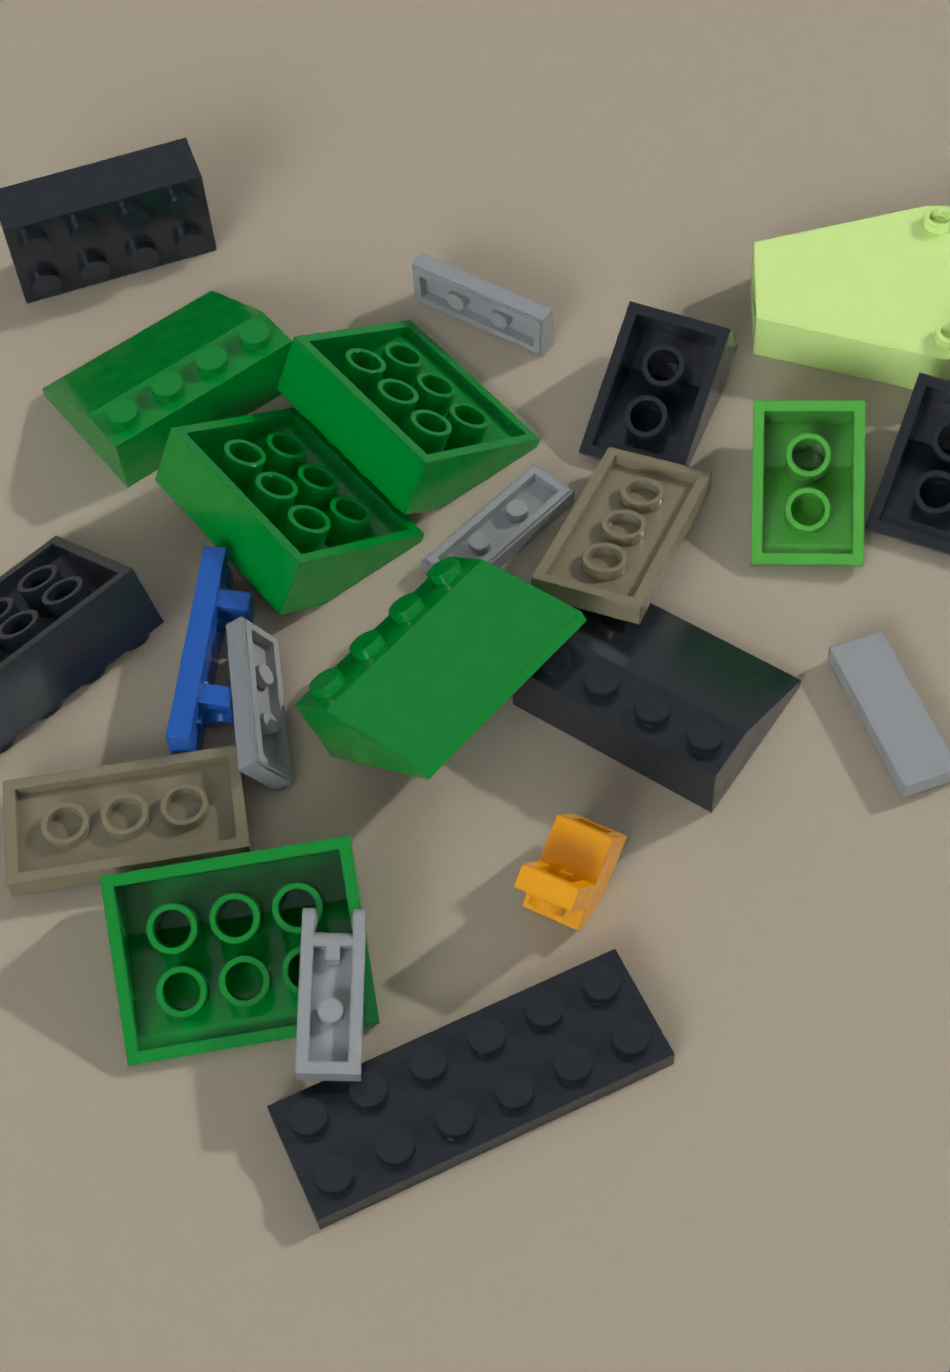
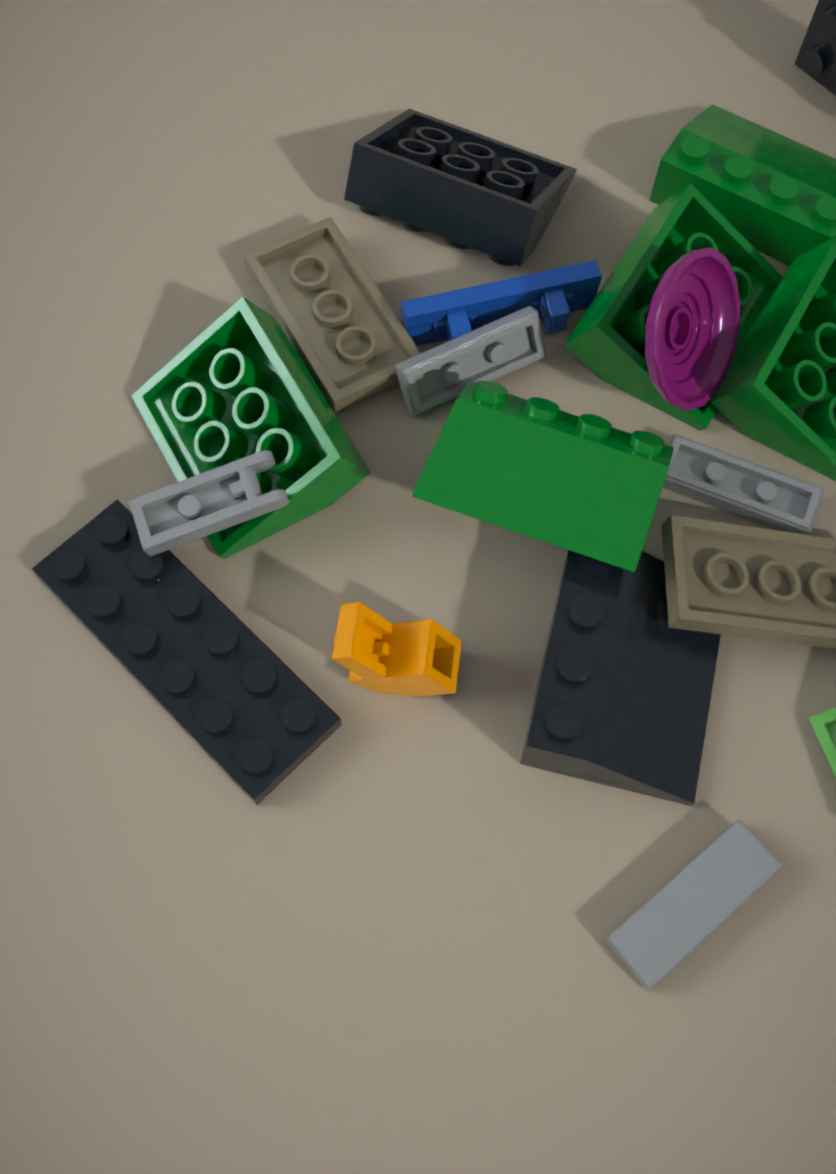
camera: 65 degrees right, 10 degrees up
(338, 492) = (693, 328): none -> magenta hat

